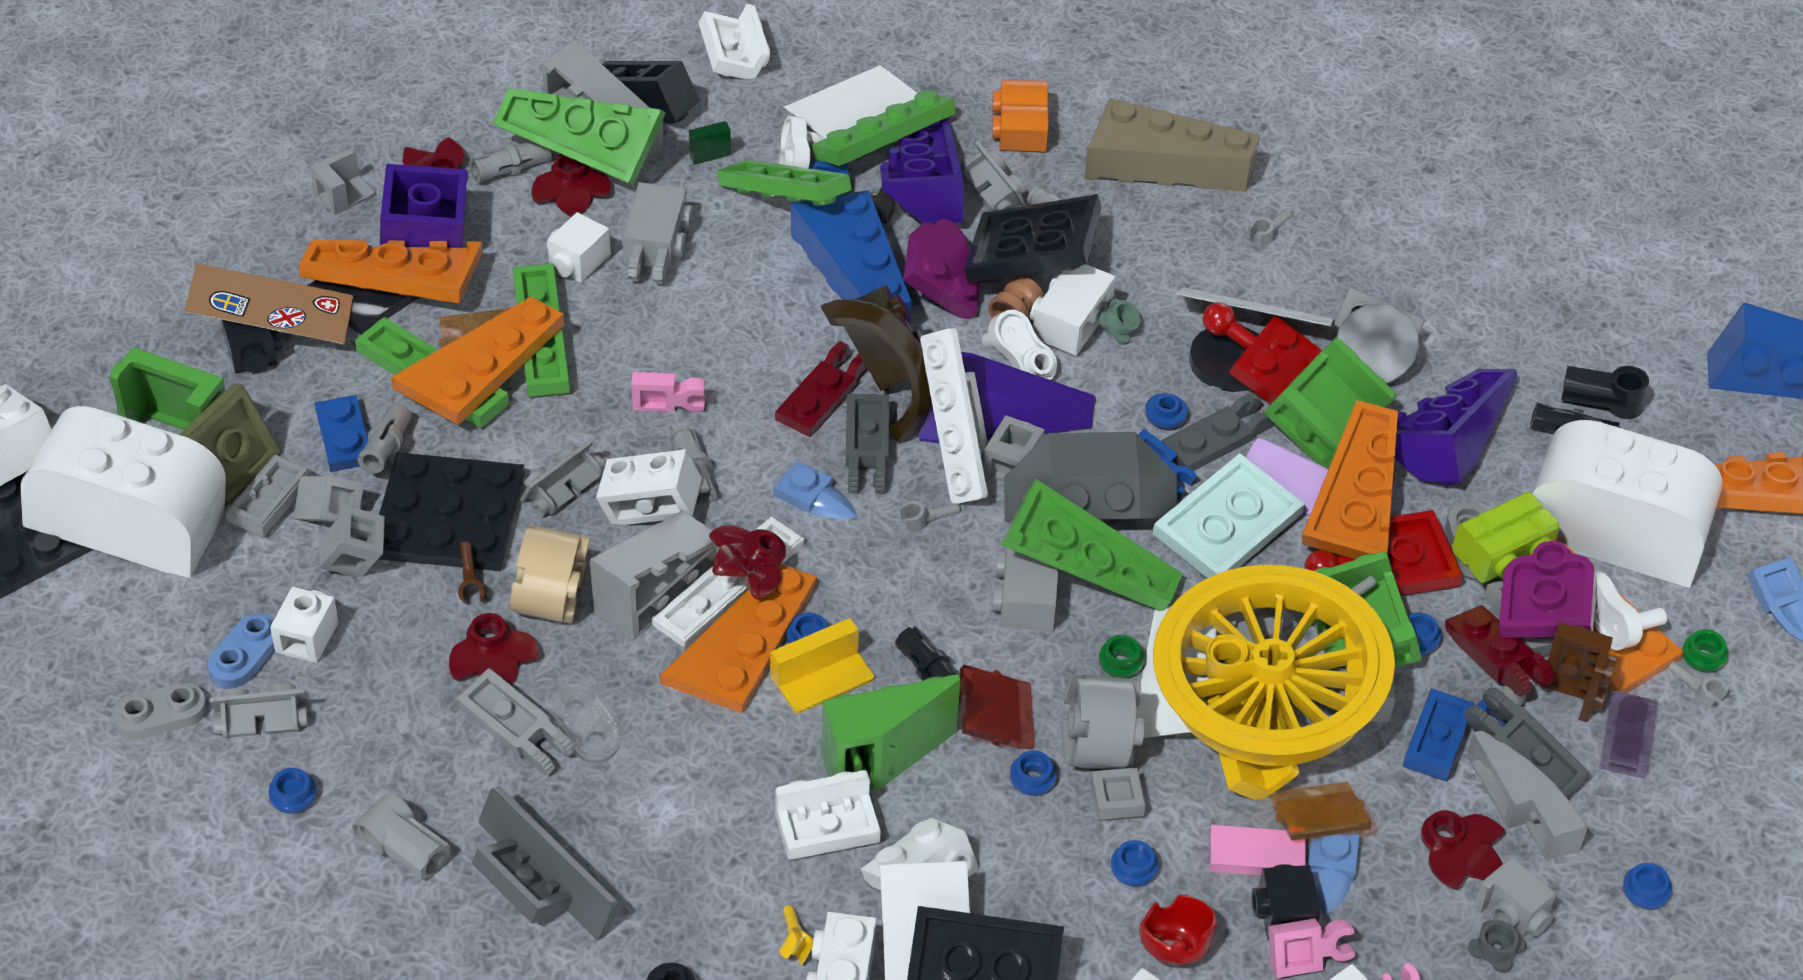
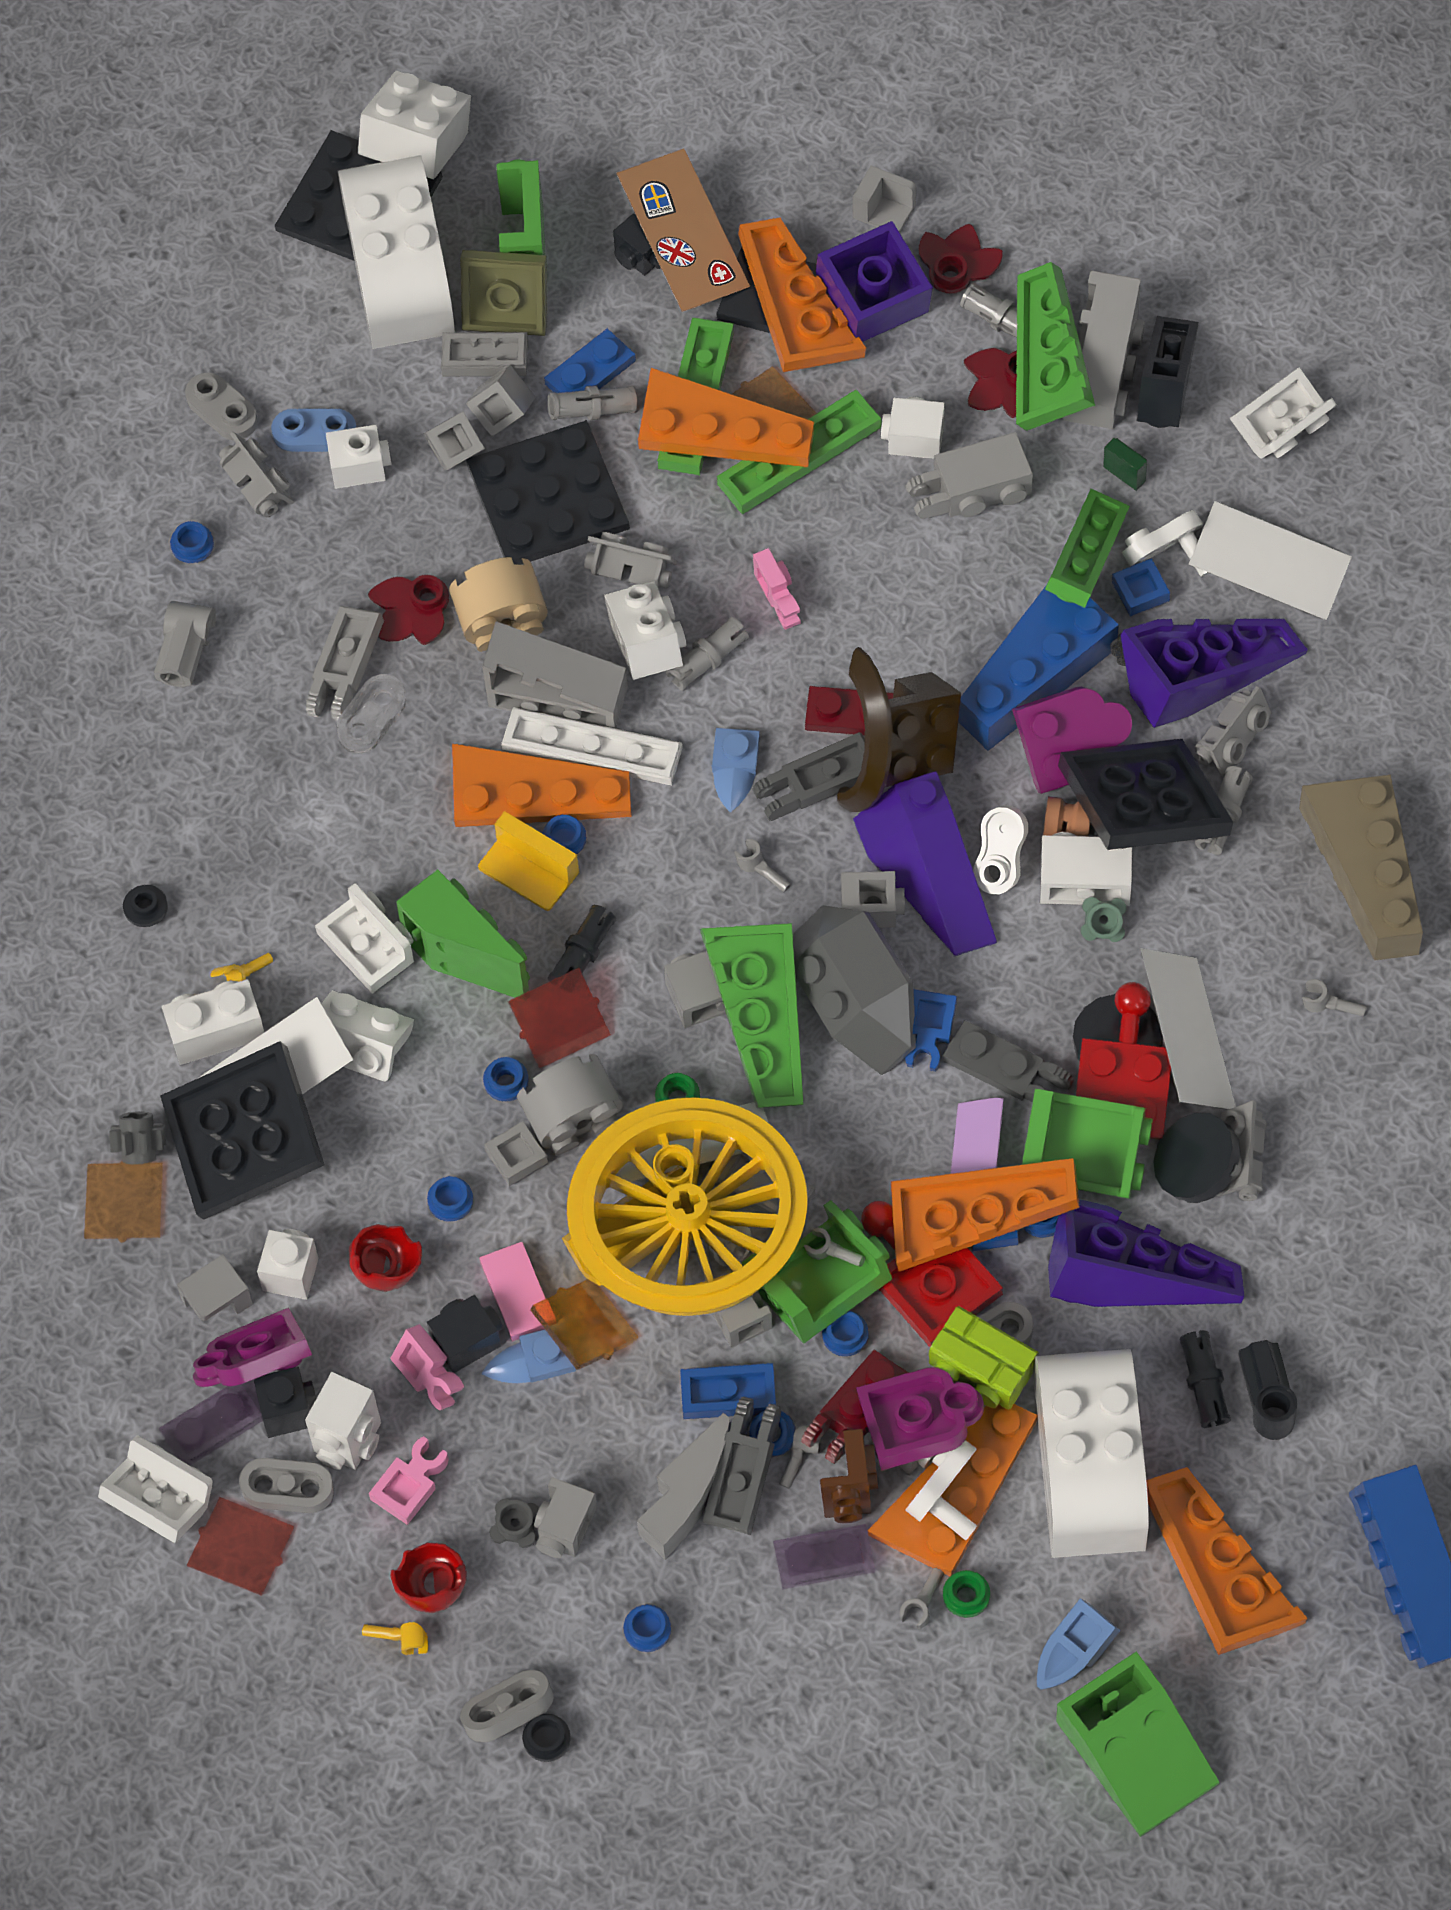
camera: 70 degrees right, 15 degrees up
(468, 572) = (476, 553): reddish brown hand -> none
(537, 870) = (193, 751): dark grey bracket -> none
(749, 555) = (596, 744): dark red plate -> none
(880, 130) = (1239, 600): bright green plate -> none
(956, 415) = (863, 833): white bracket -> none
(1022, 115) = (1343, 711): orange brick -> none
(1162, 417) = (1008, 1020): blue plate -> none
(1228, 518) = (891, 1115): light aqua plate -> none
(1465, 852) = (610, 1465): dark red plate -> none

